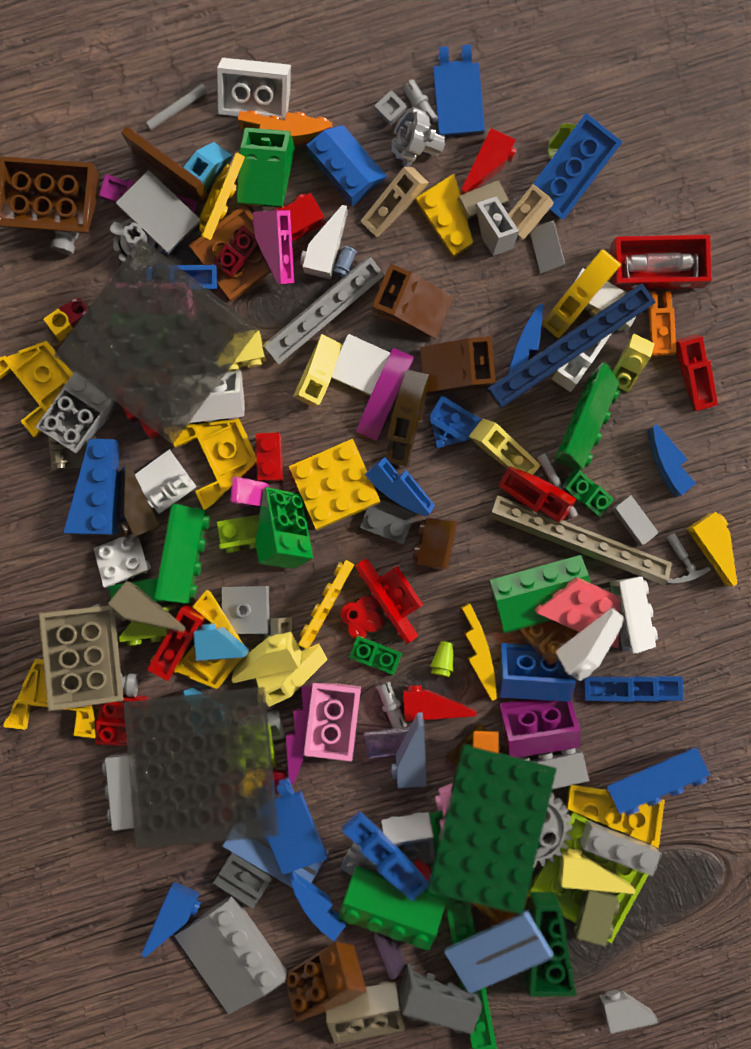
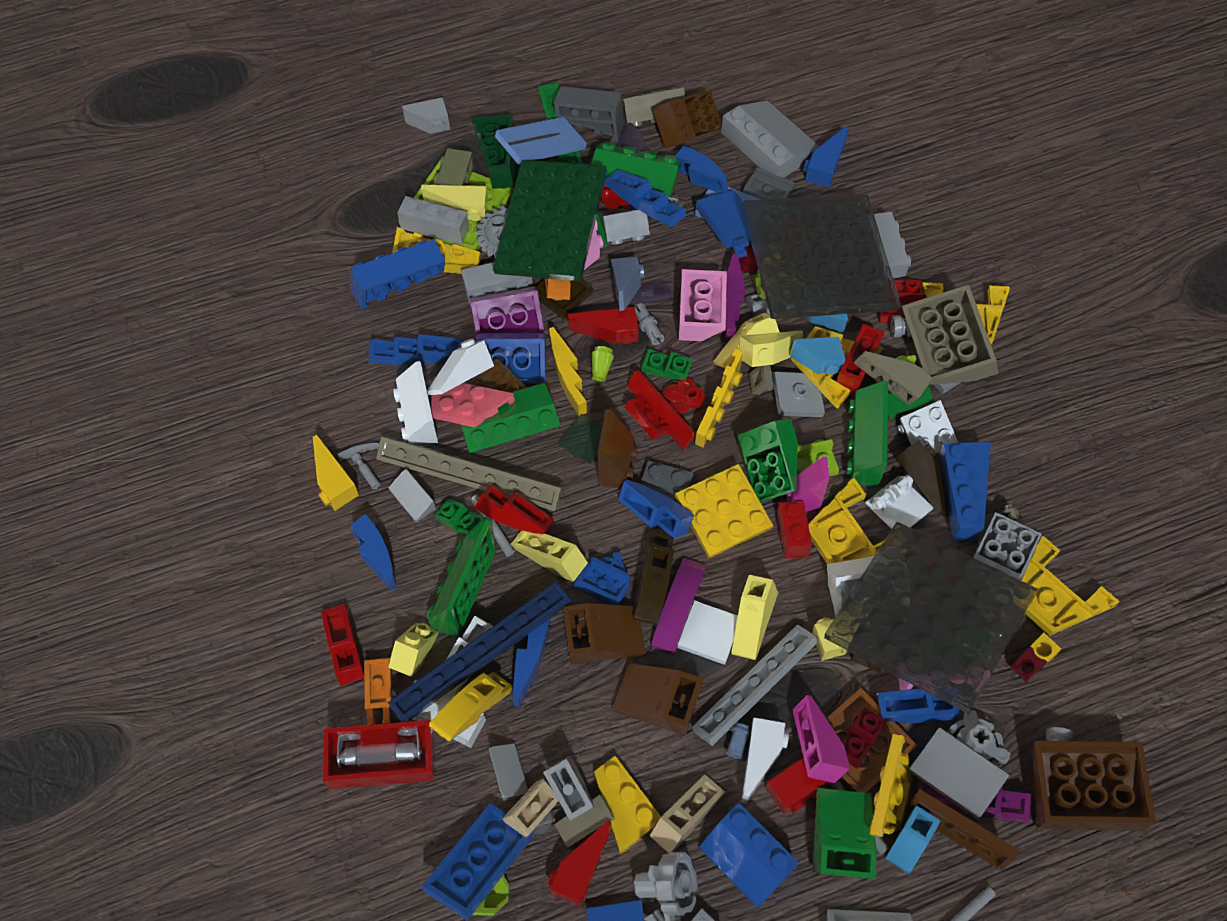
camera: 175 degrees right, 25 degrees down
(302, 128) = (816, 891): orange slope -> none
(462, 576) = (583, 439): none -> clear green piece

